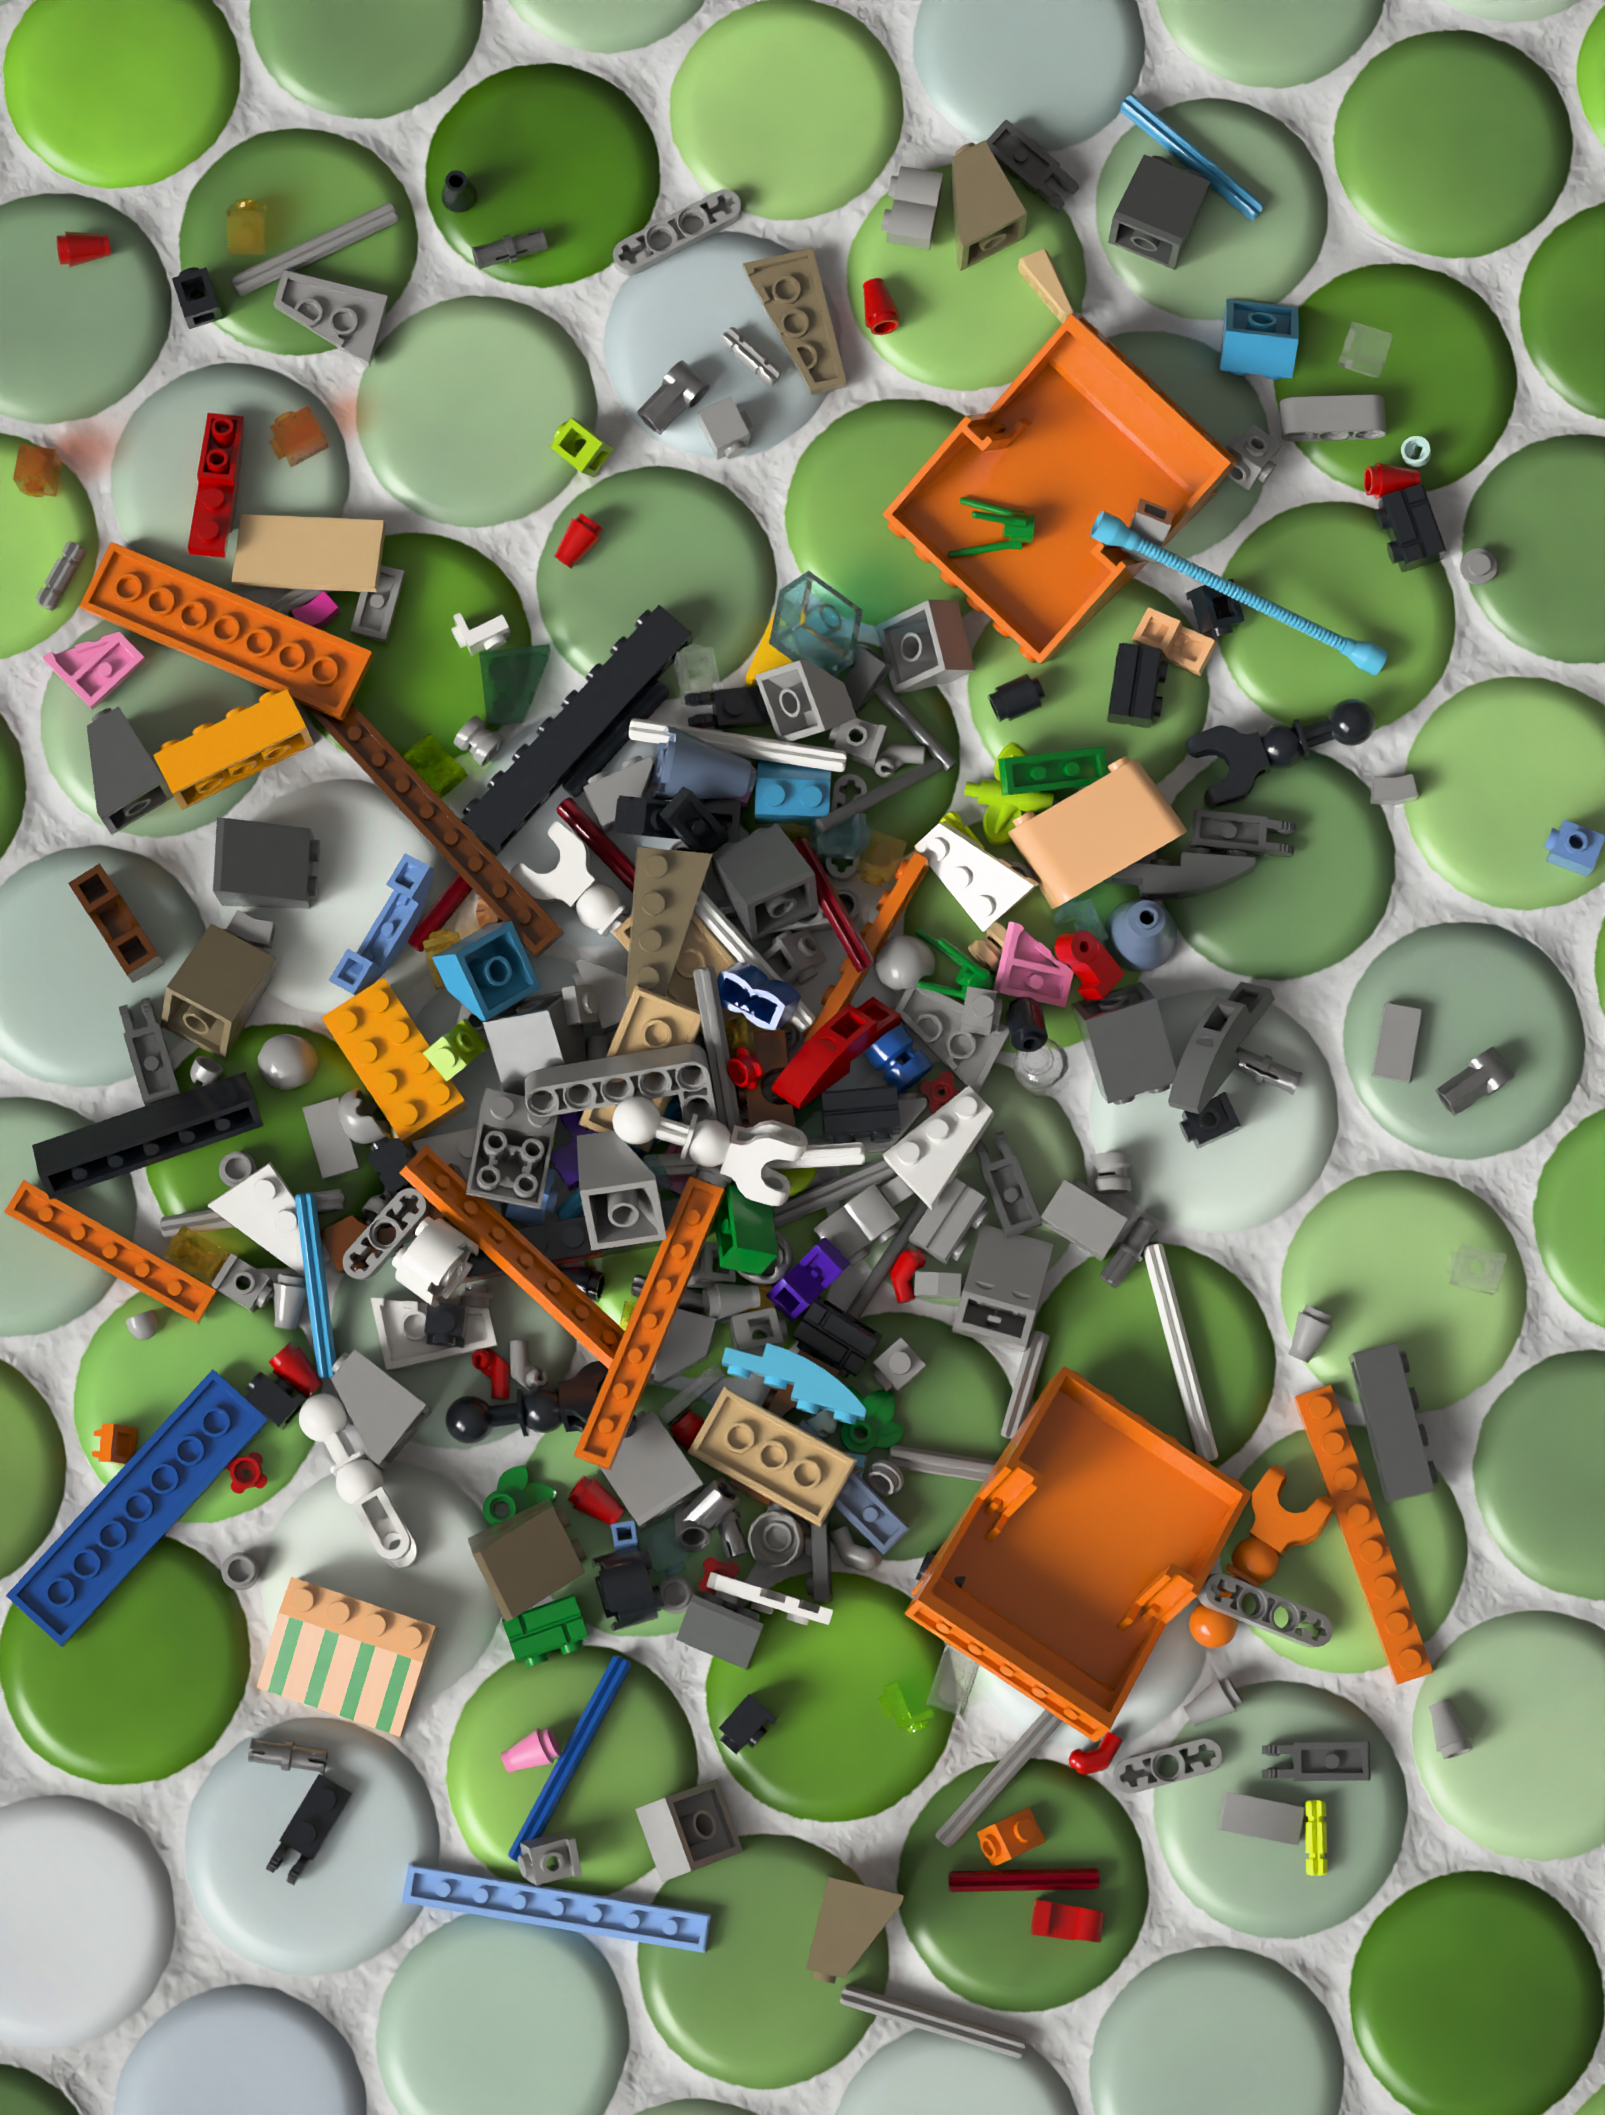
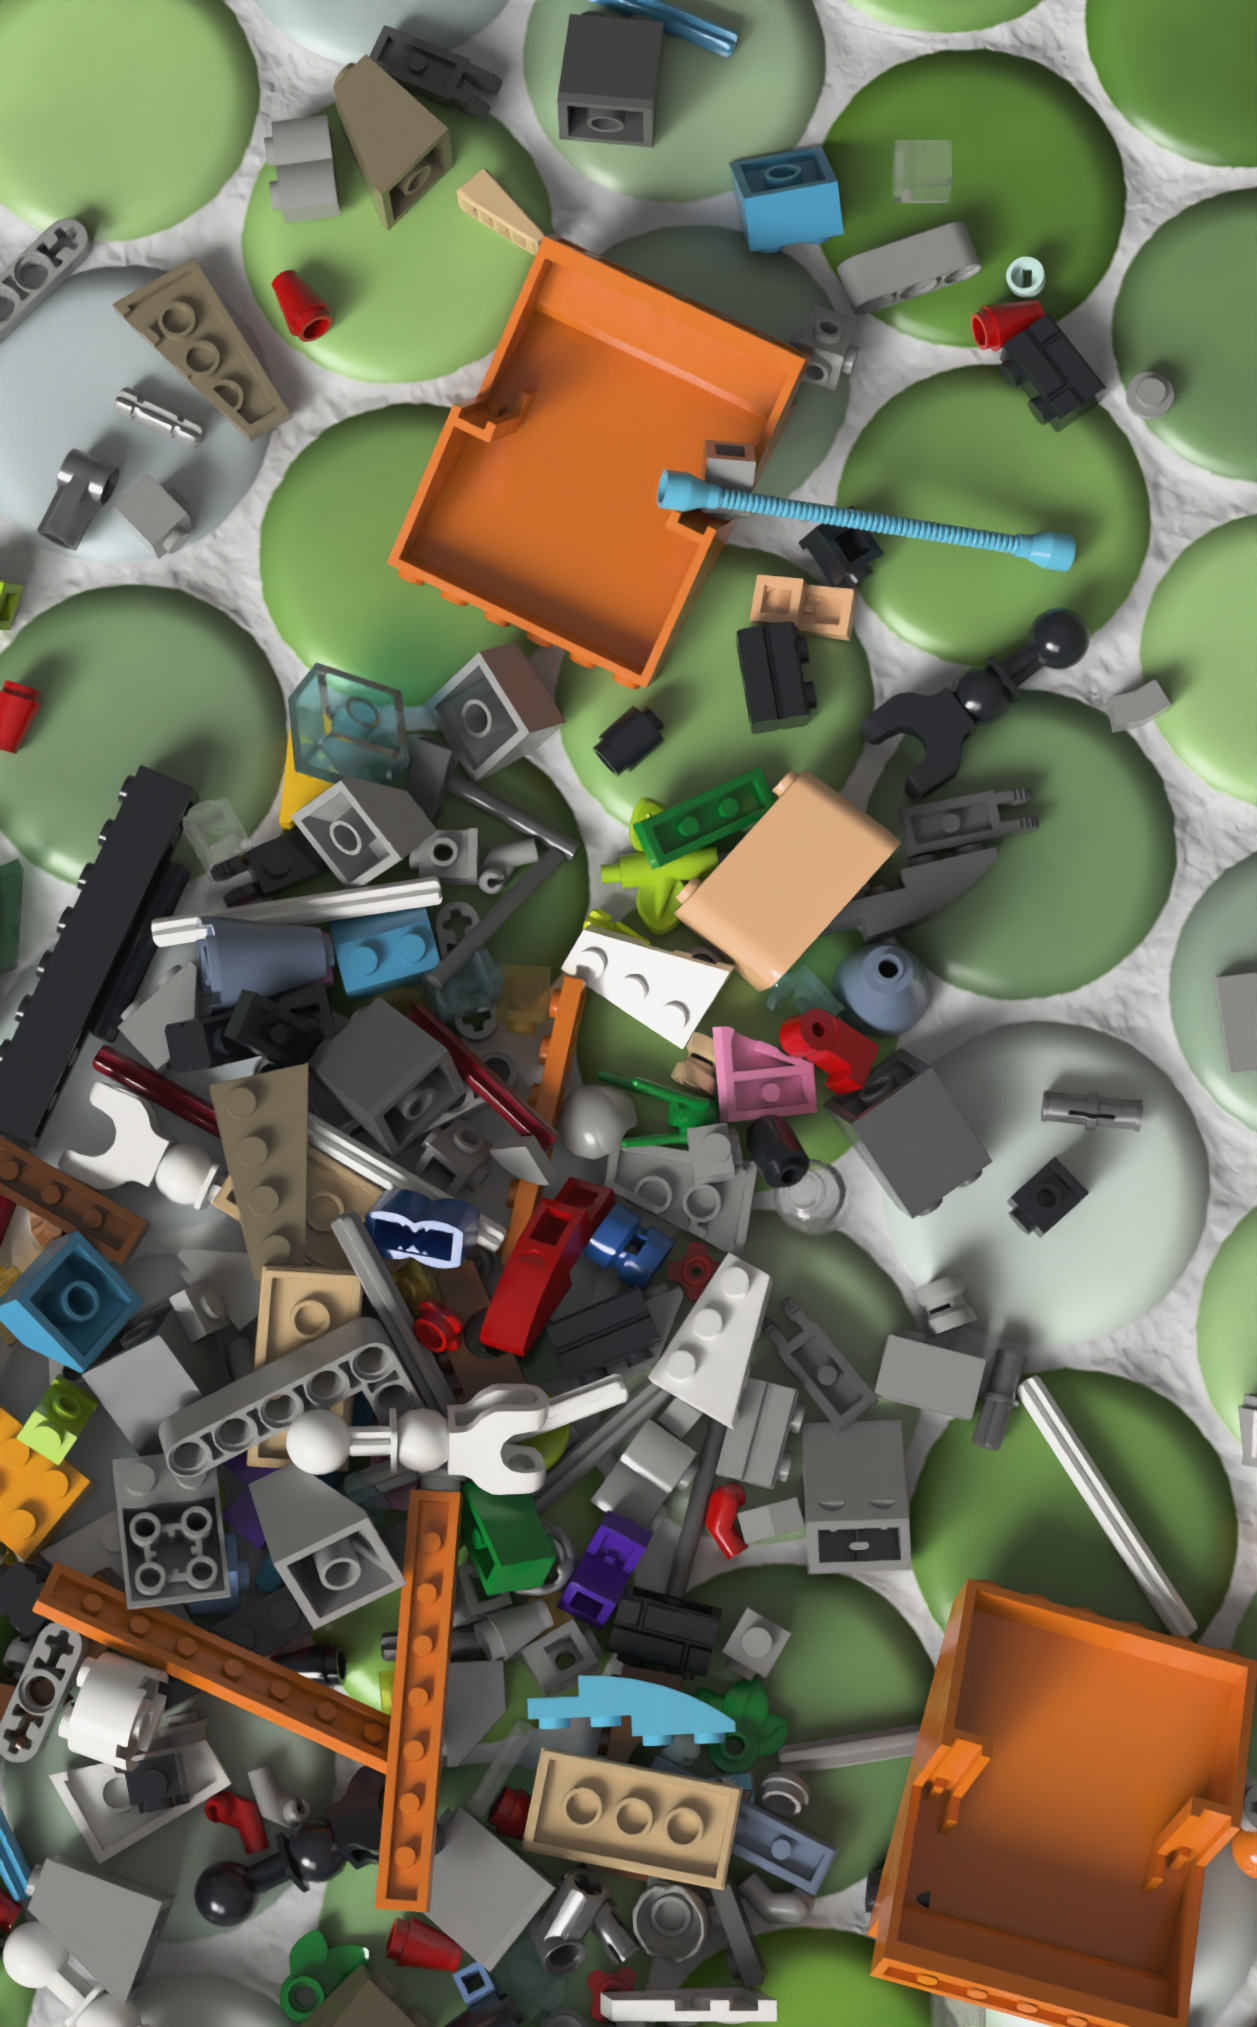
camera: 15 degrees left, 0 degrees up
(844, 972) = (524, 1159): none -> light grey tile
(1016, 526) = (559, 525): green plant -> none
(1025, 1383) = (923, 1613): light grey axle -> none
(1212, 1047) = (1021, 1101): dark grey slope -> none

